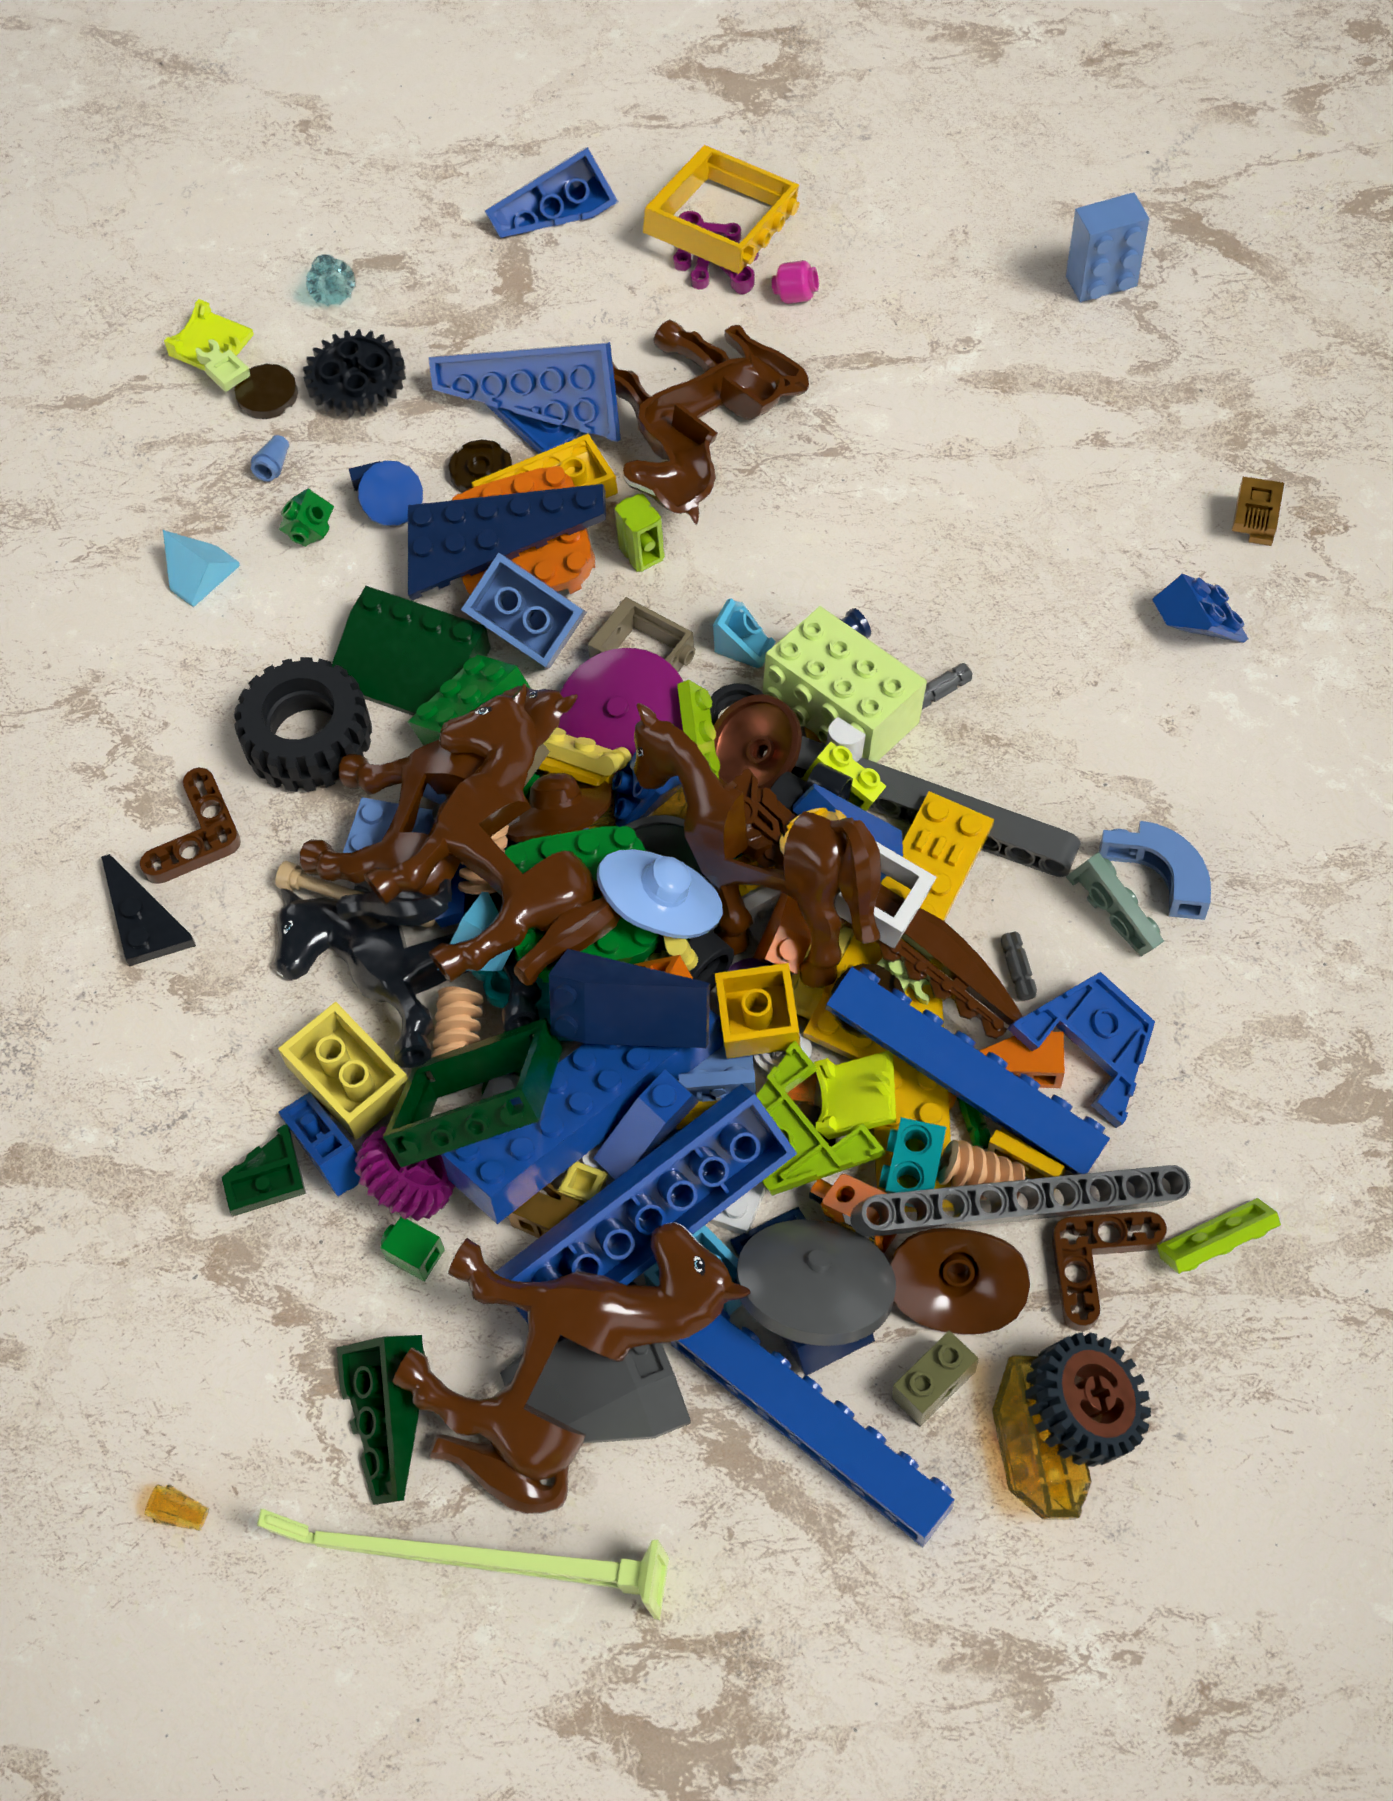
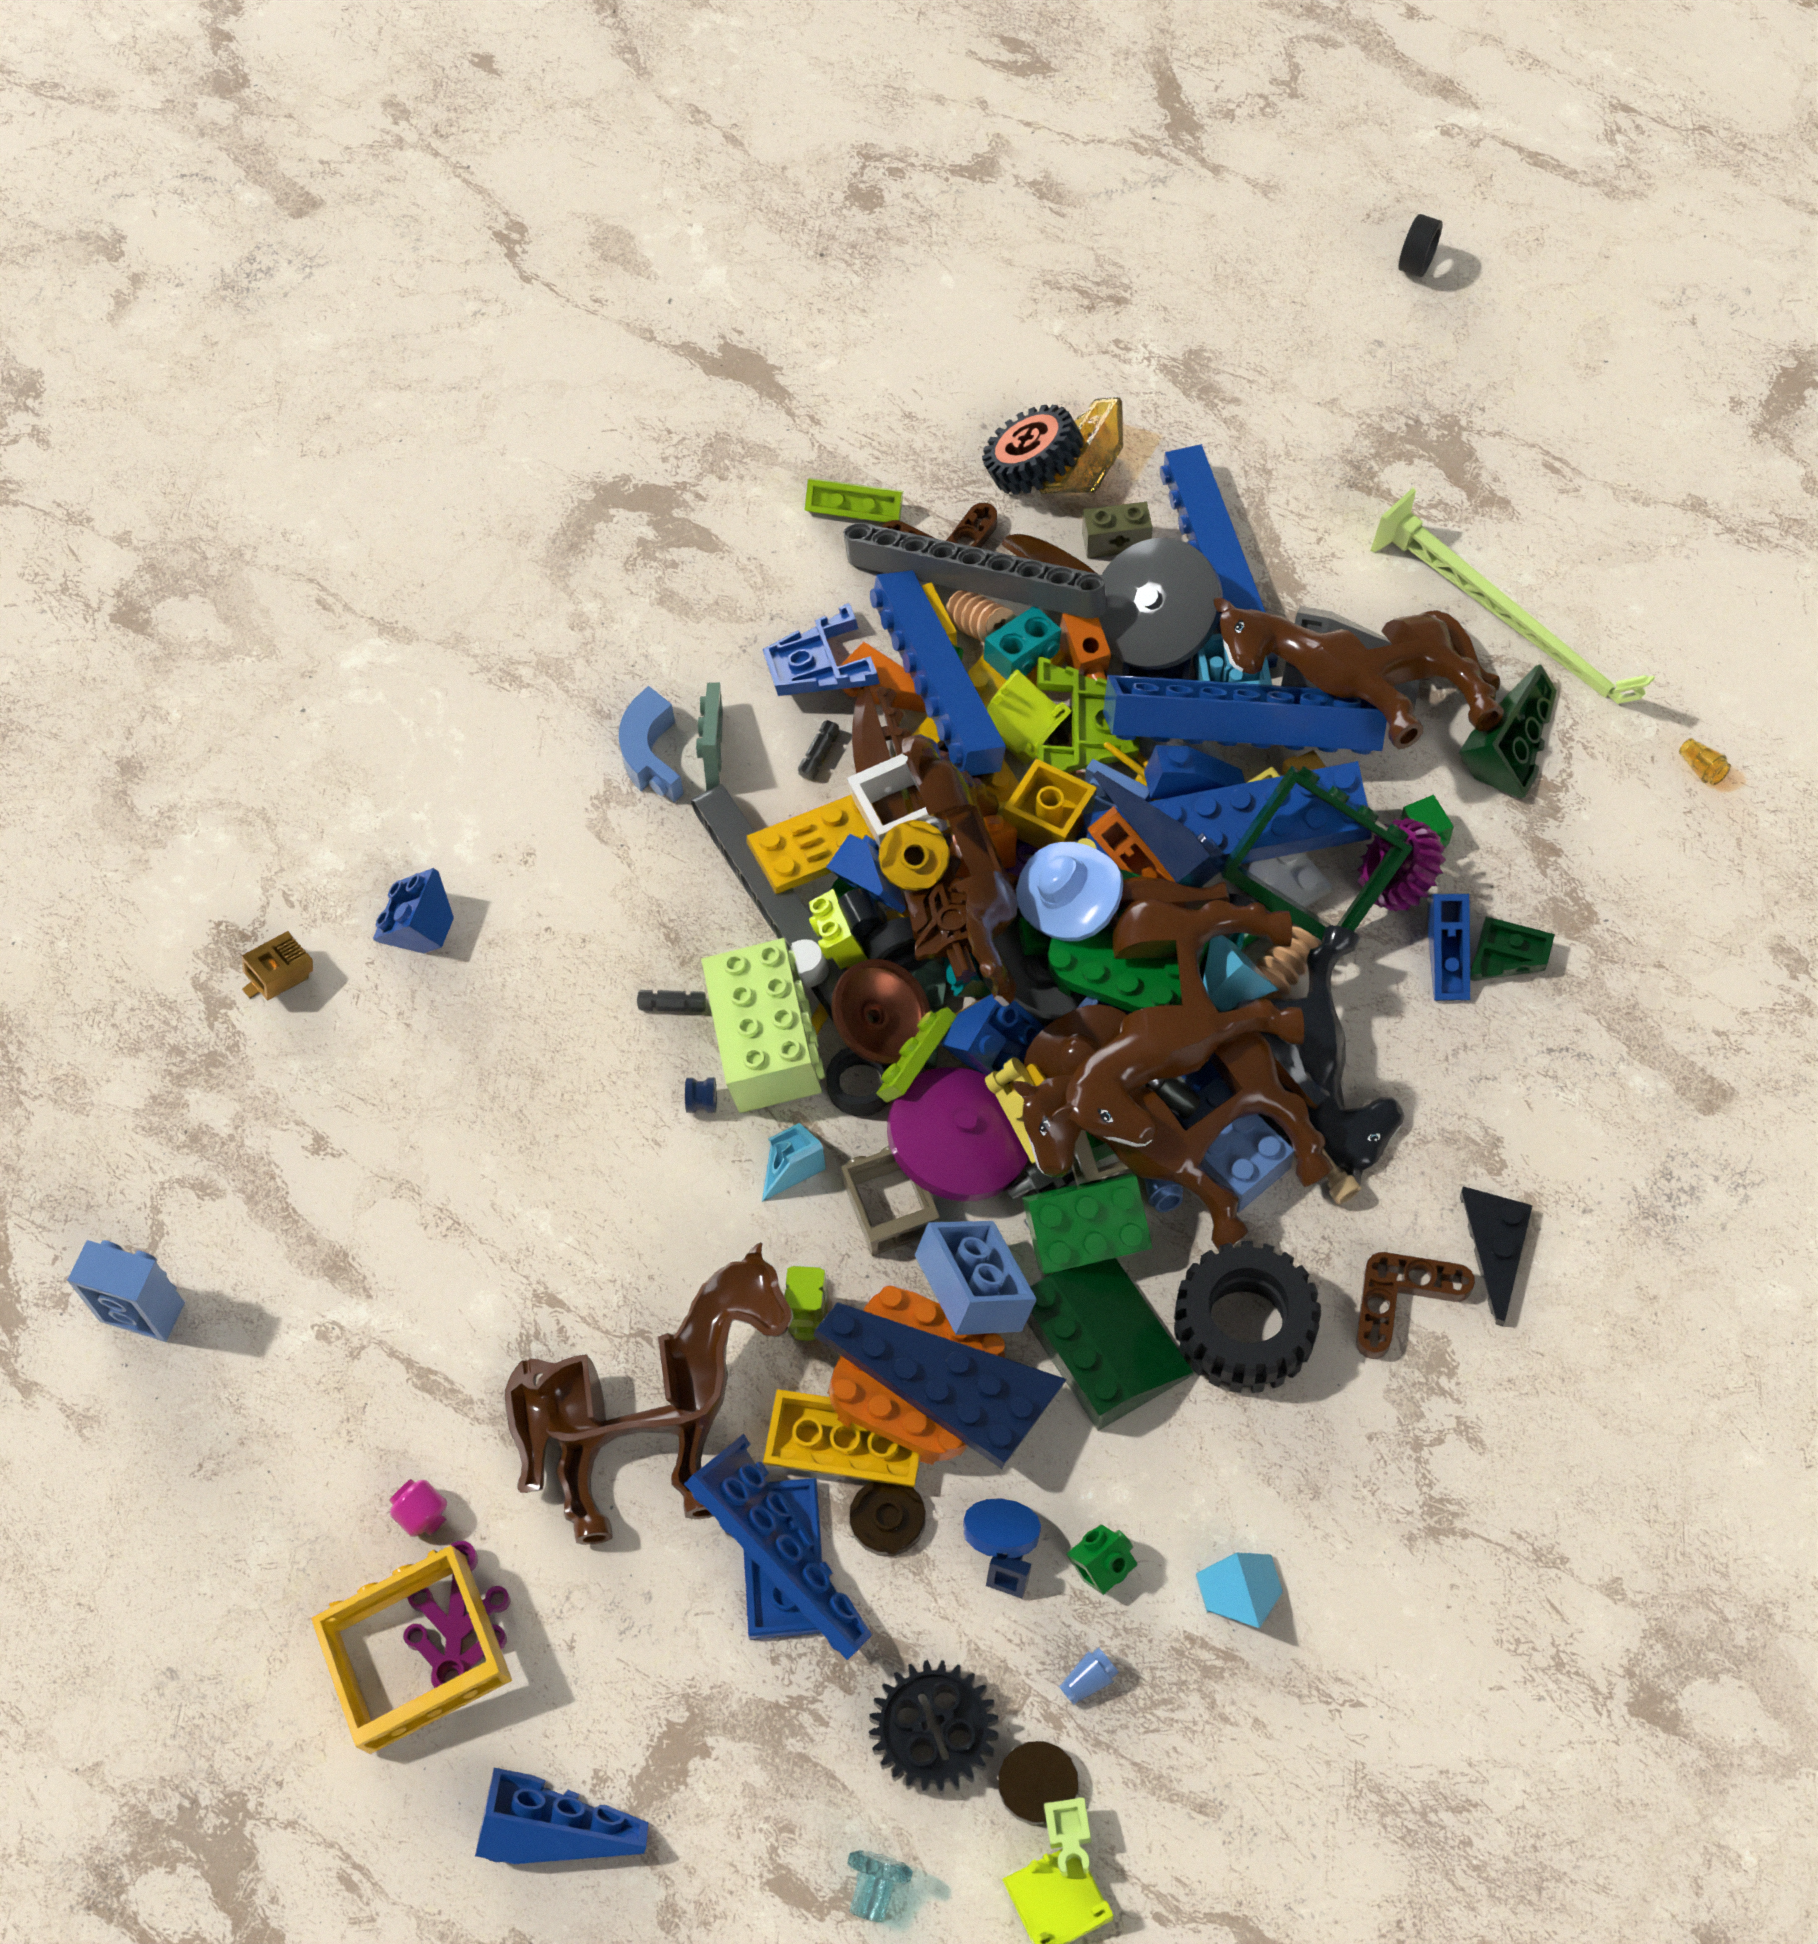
camera: 145 degrees left, 0 degrees up
(345, 1070) = (1399, 979): light yellow brick -> none

